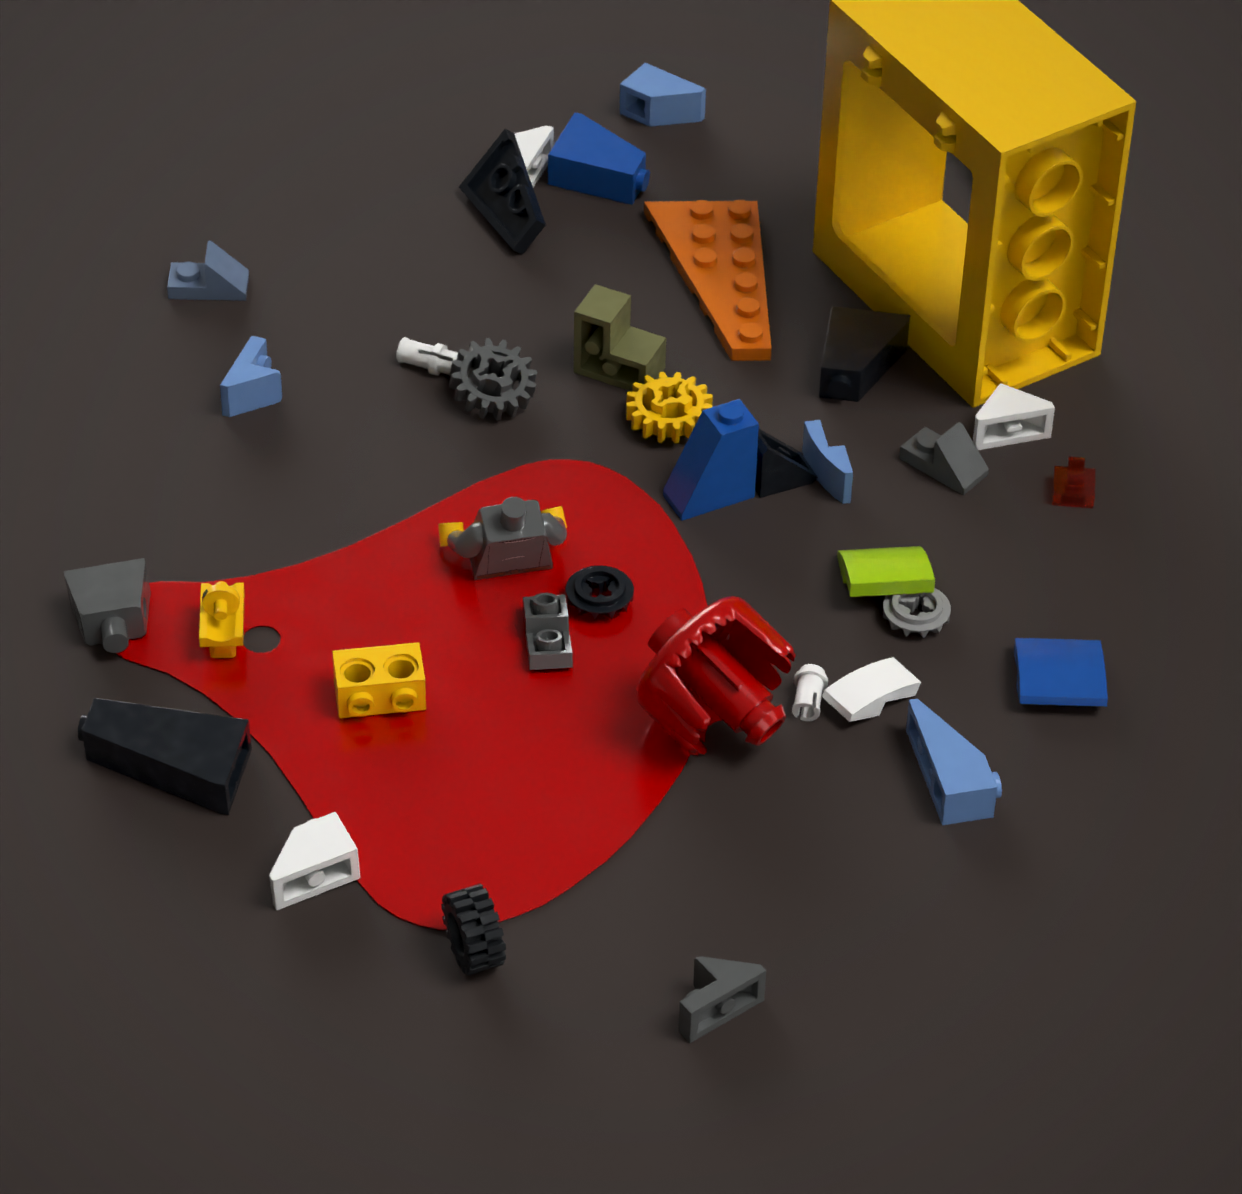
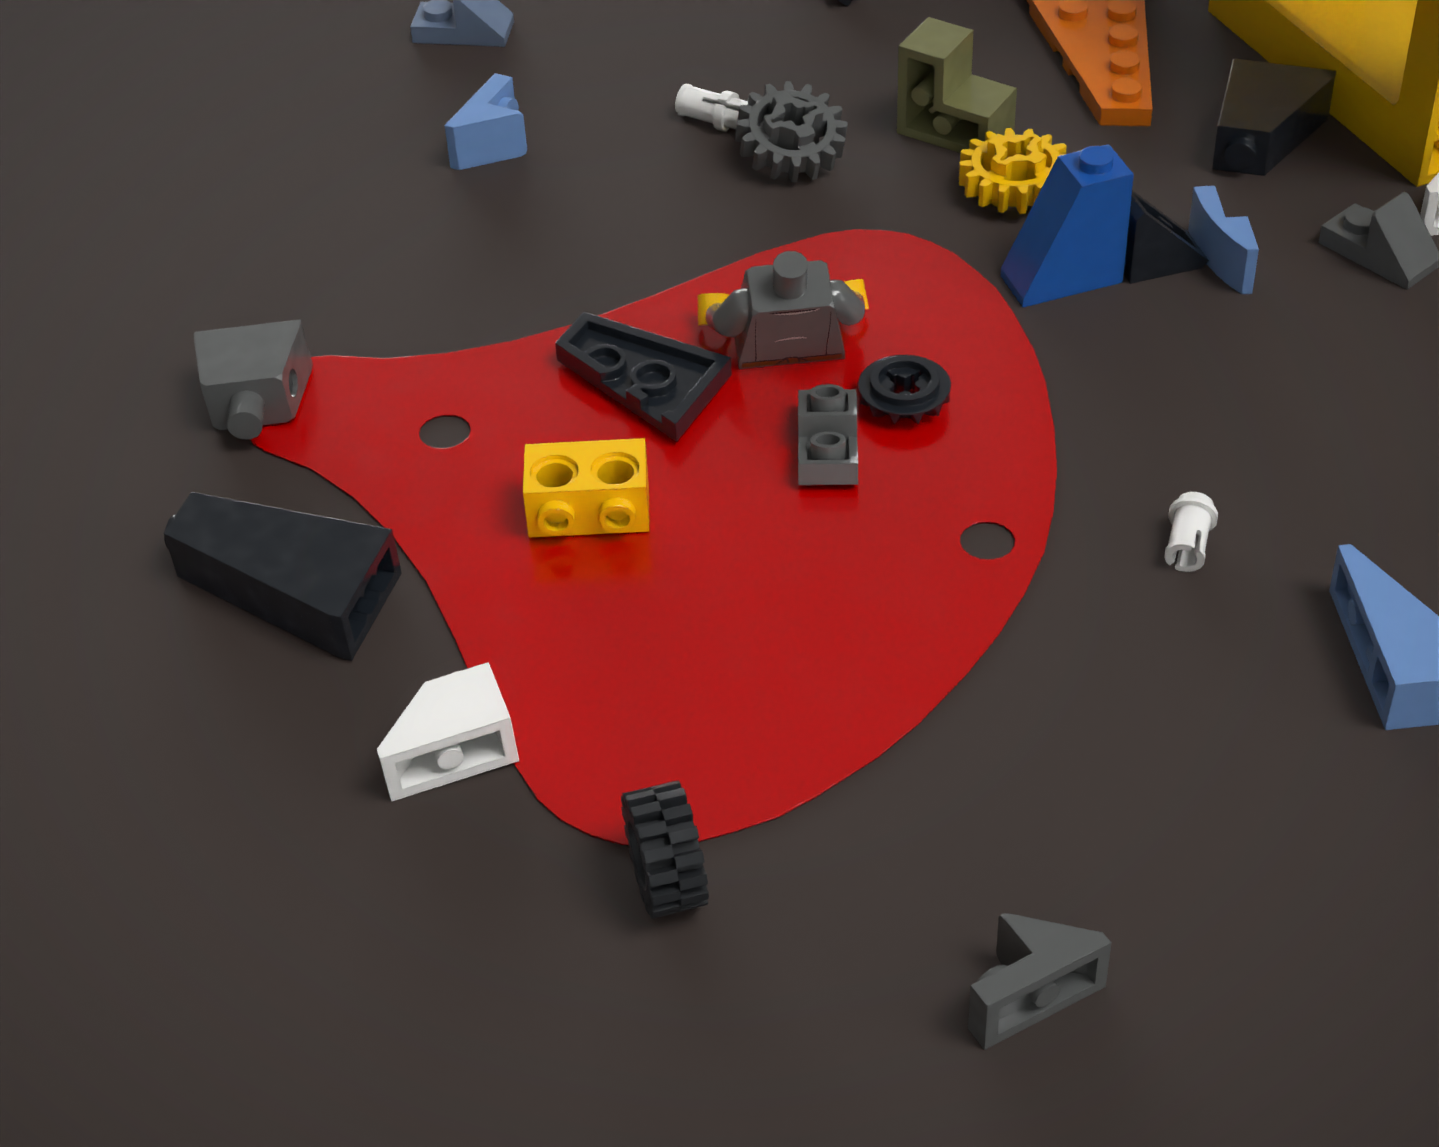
camera: 10 degrees right, 0 degrees up
(222, 618) = (389, 399): yellow hips -> none
(404, 585) = (644, 371): none -> black wing
(714, 672) = (1054, 491): red piece -> none
(868, 688) = (1275, 530): white slope -> none
(886, 571) = (1303, 377): lime slope -> none
(935, 612) = (1329, 414): light grey gear -> none

